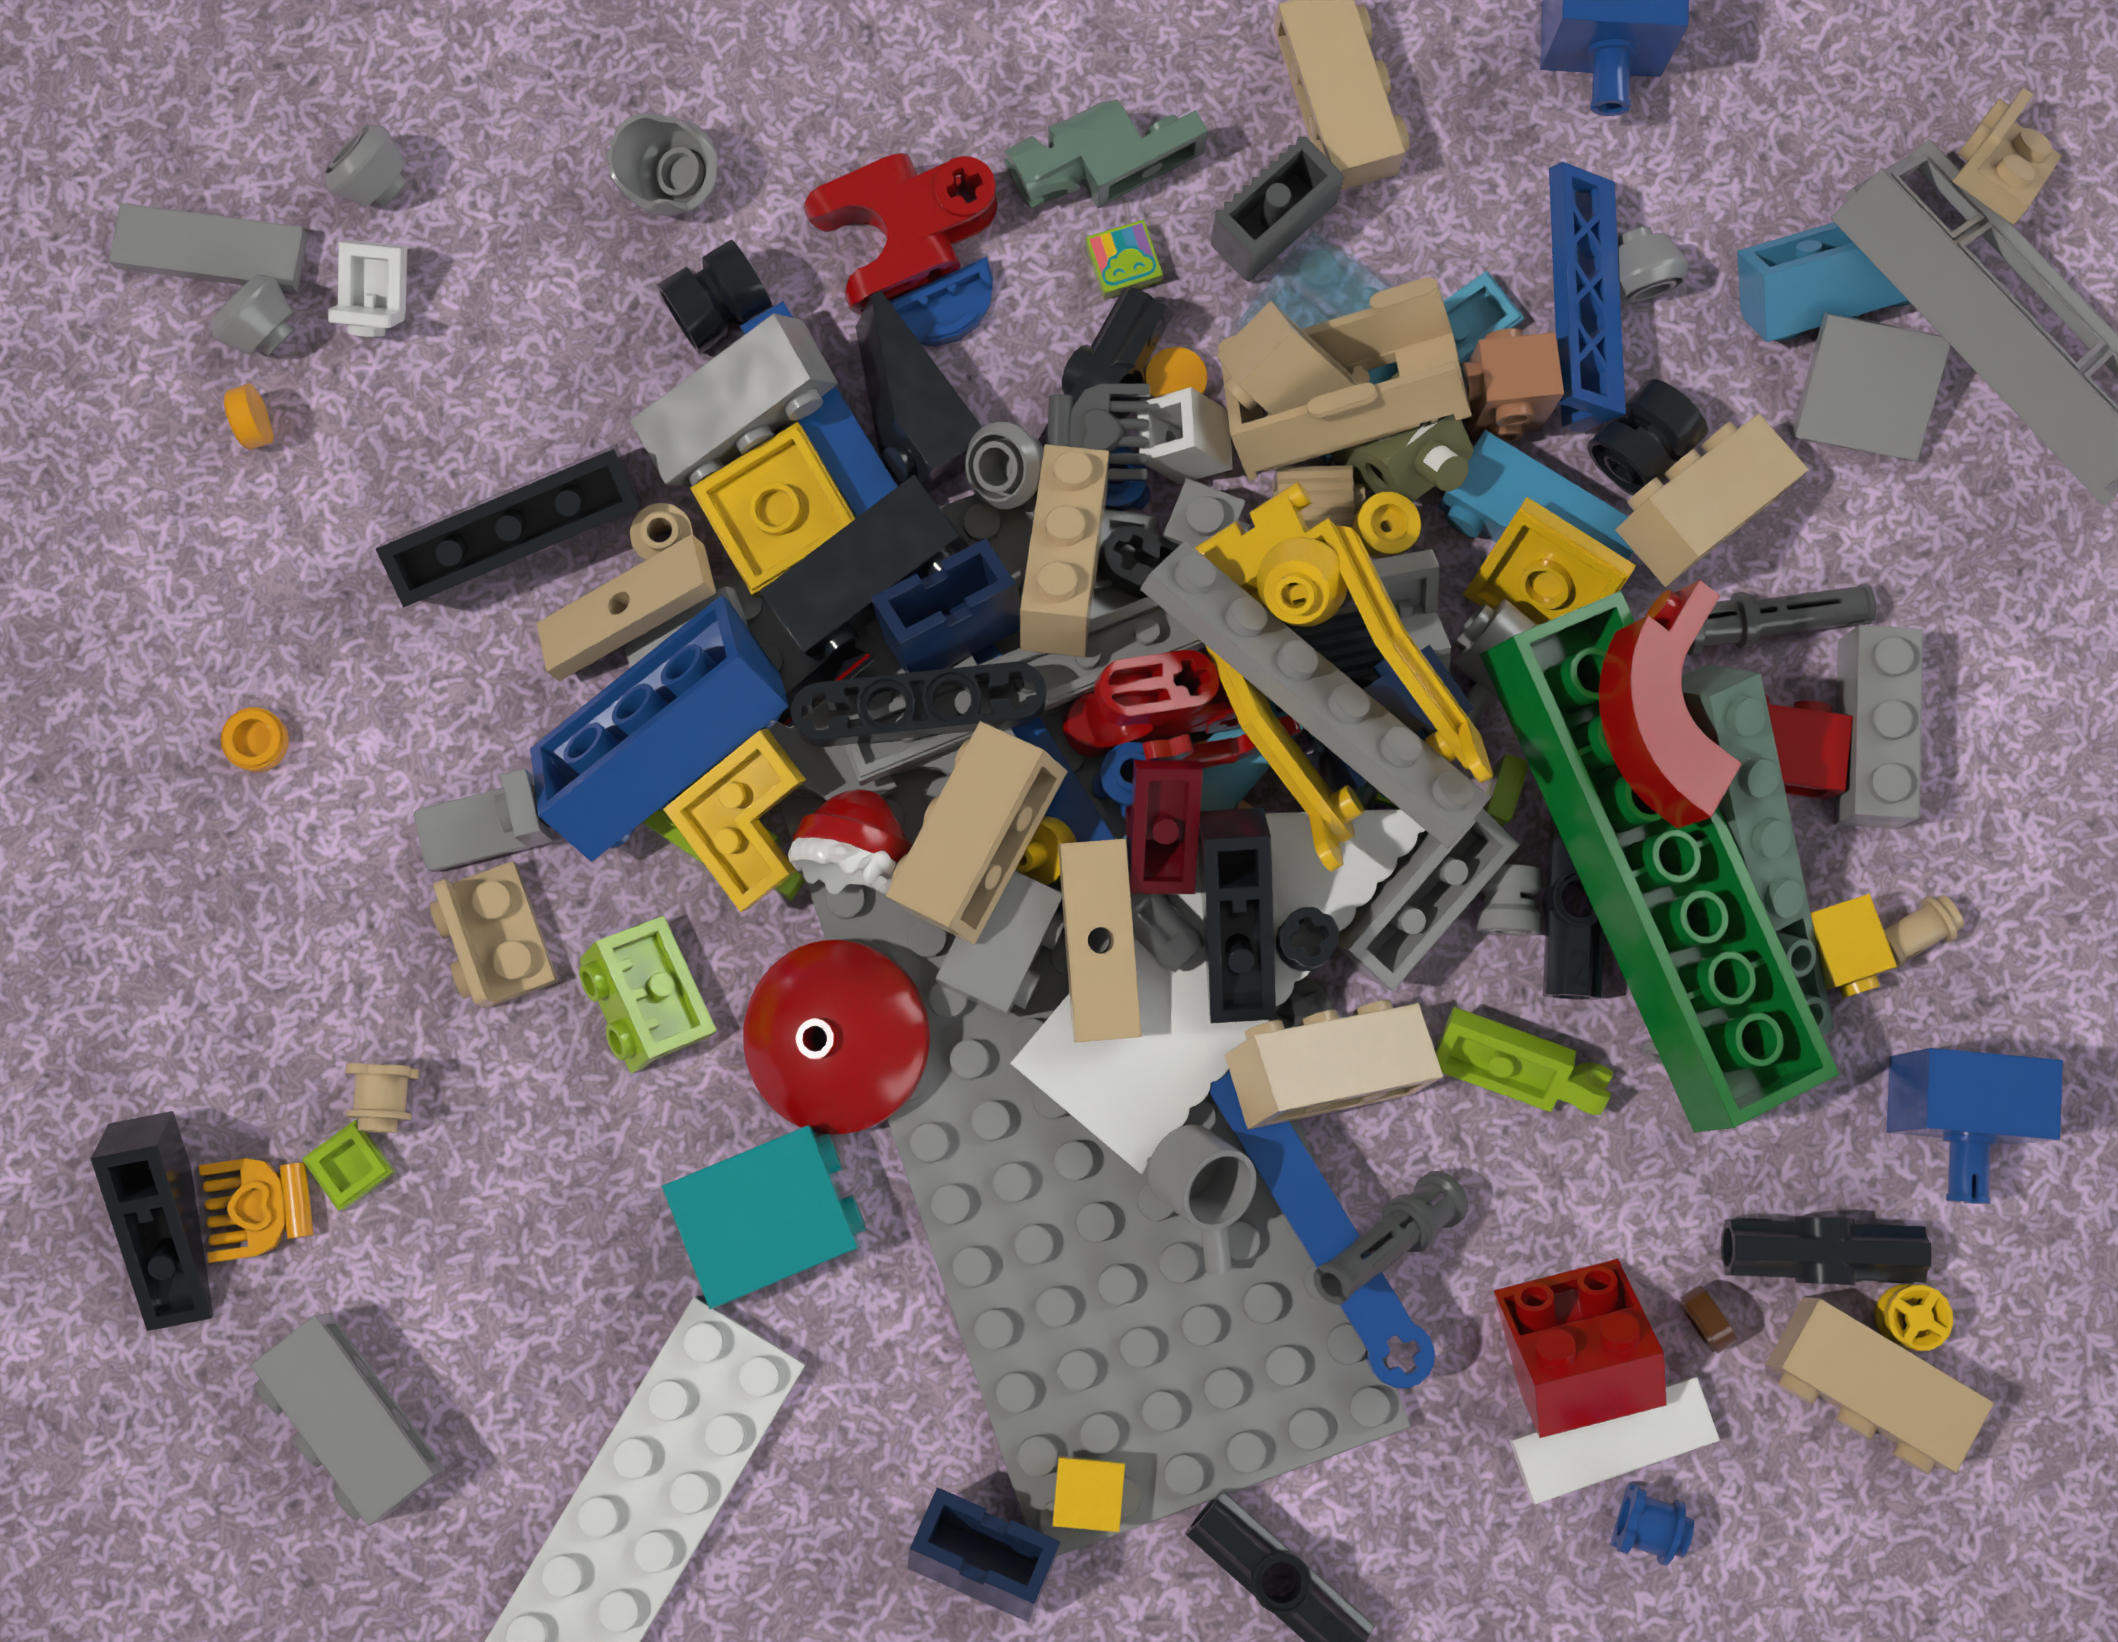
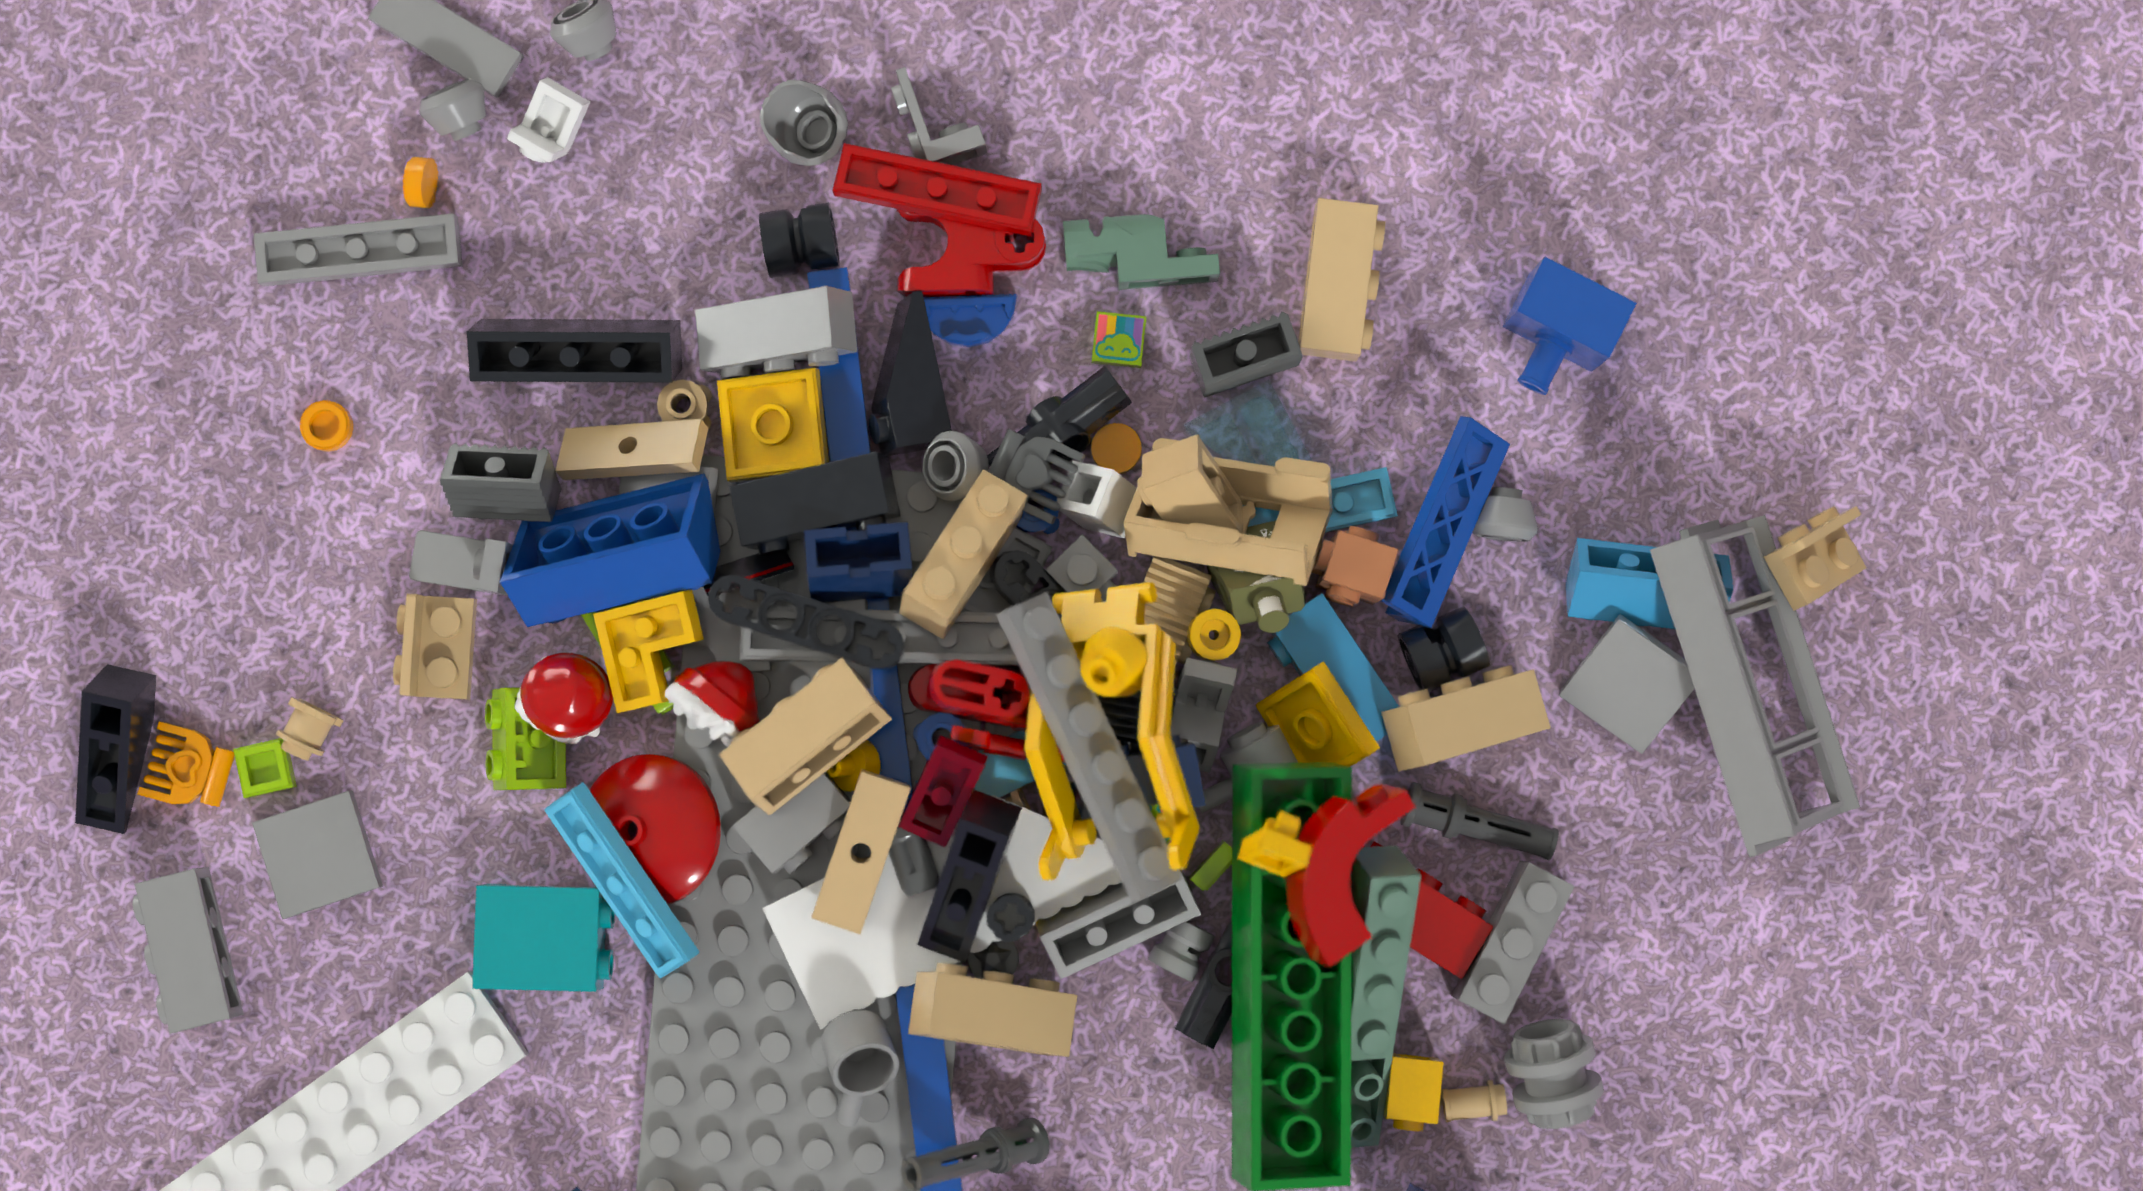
camera: 30 degrees right, 5 degrees up
(206, 524) = (357, 250): none -> light grey plate
(454, 1240) = (317, 854): none -> light grey tile
(489, 710) = (500, 483): none -> dark grey brick
(671, 922) = (565, 697): none -> red hair
(831, 1102) = (621, 880): none -> medium azure tile
(841, 123) = (955, 142): none -> light grey bracket
(848, 170) = (937, 189): none -> red tile
(1519, 1064) = (1133, 1070): lime plate -> none
(1586, 708) = (1276, 847): none -> yellow tile
(1991, 846) = (1552, 1063): none -> light grey piece

